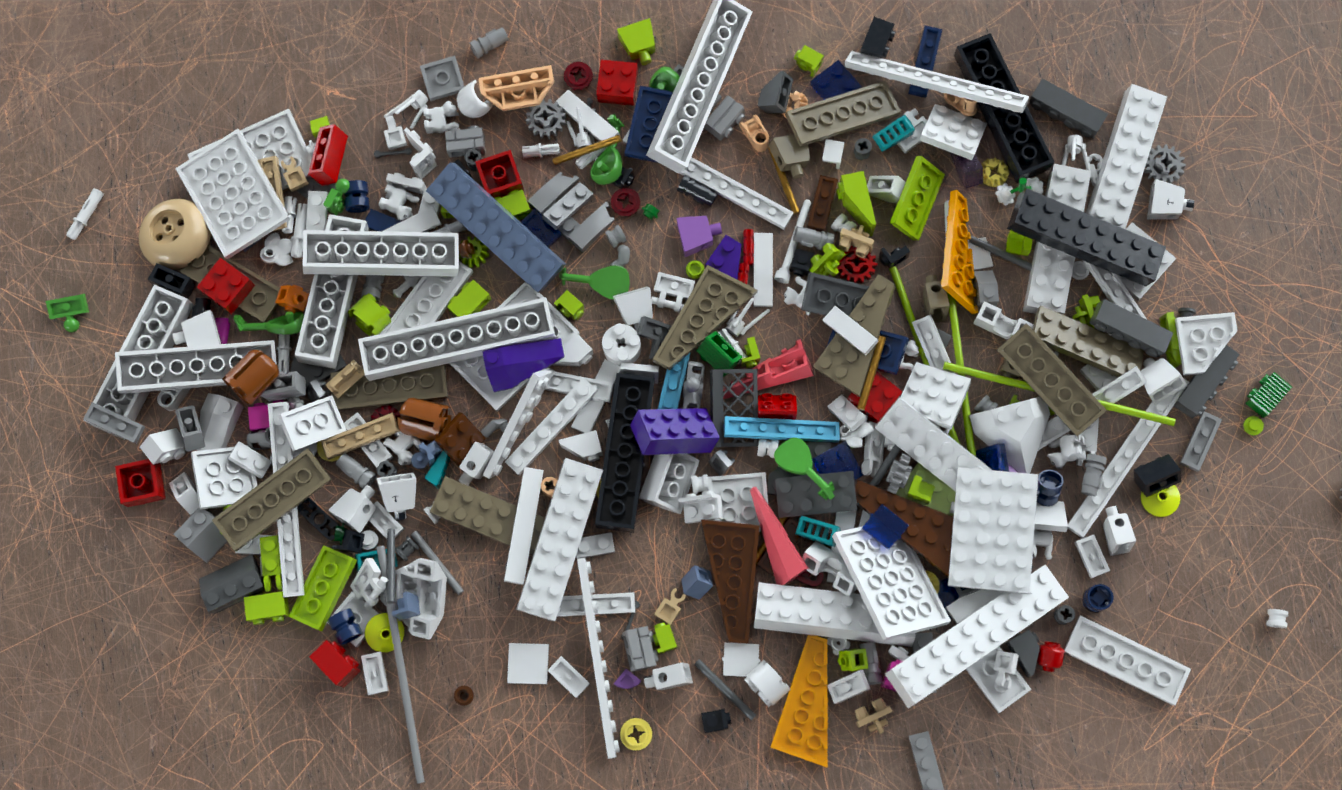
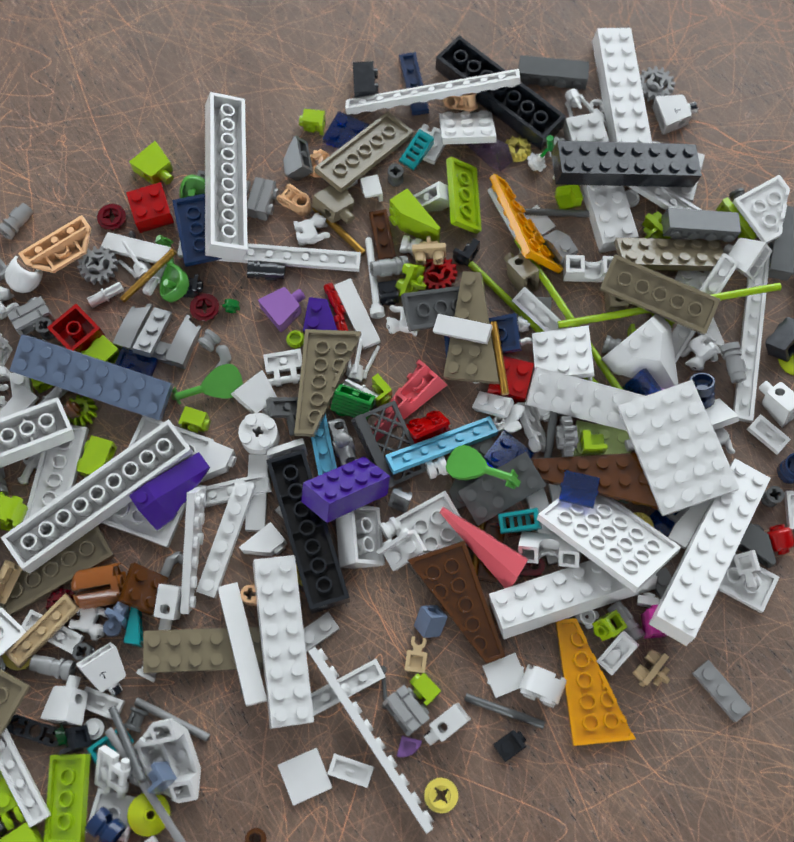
camera: 30 degrees left, 5 degrees down
(755, 167) = (308, 229): none -> white animal

